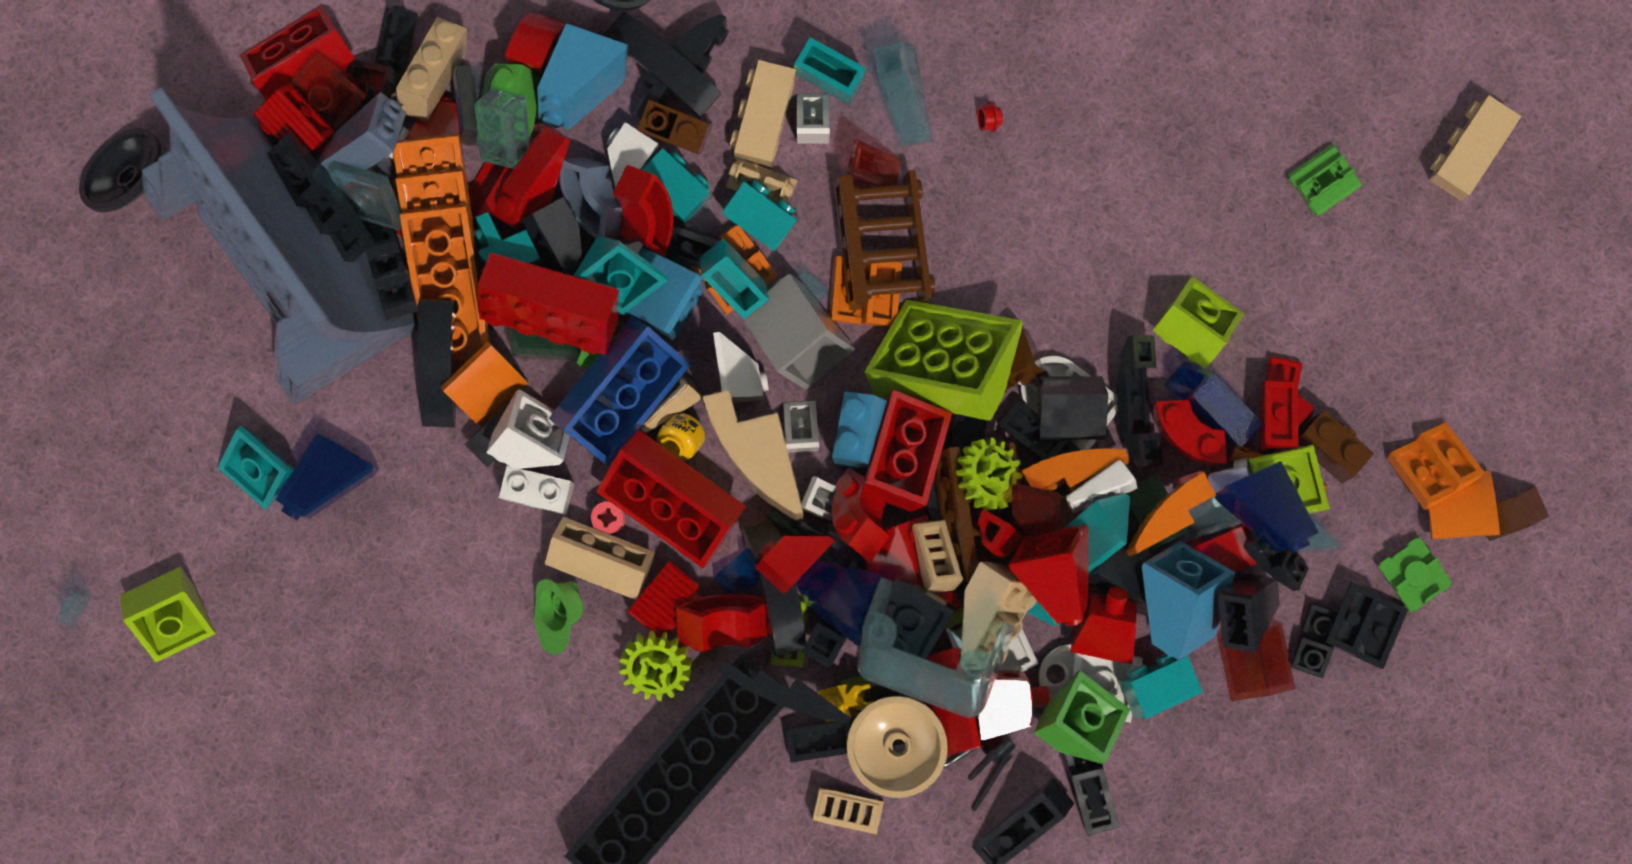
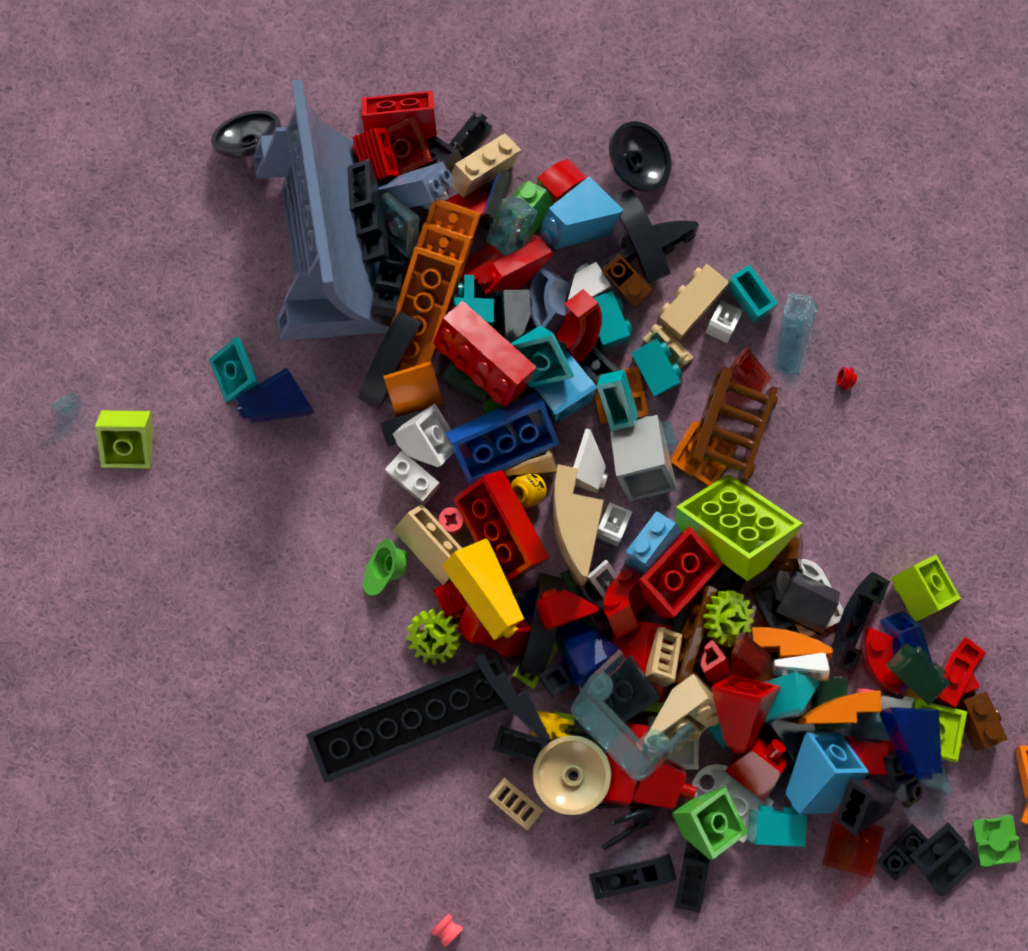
camera: 30 degrees right, 5 degrees down
(688, 581) = (485, 588): none -> yellow slope
(1236, 429) = (917, 673): none -> clear green brick

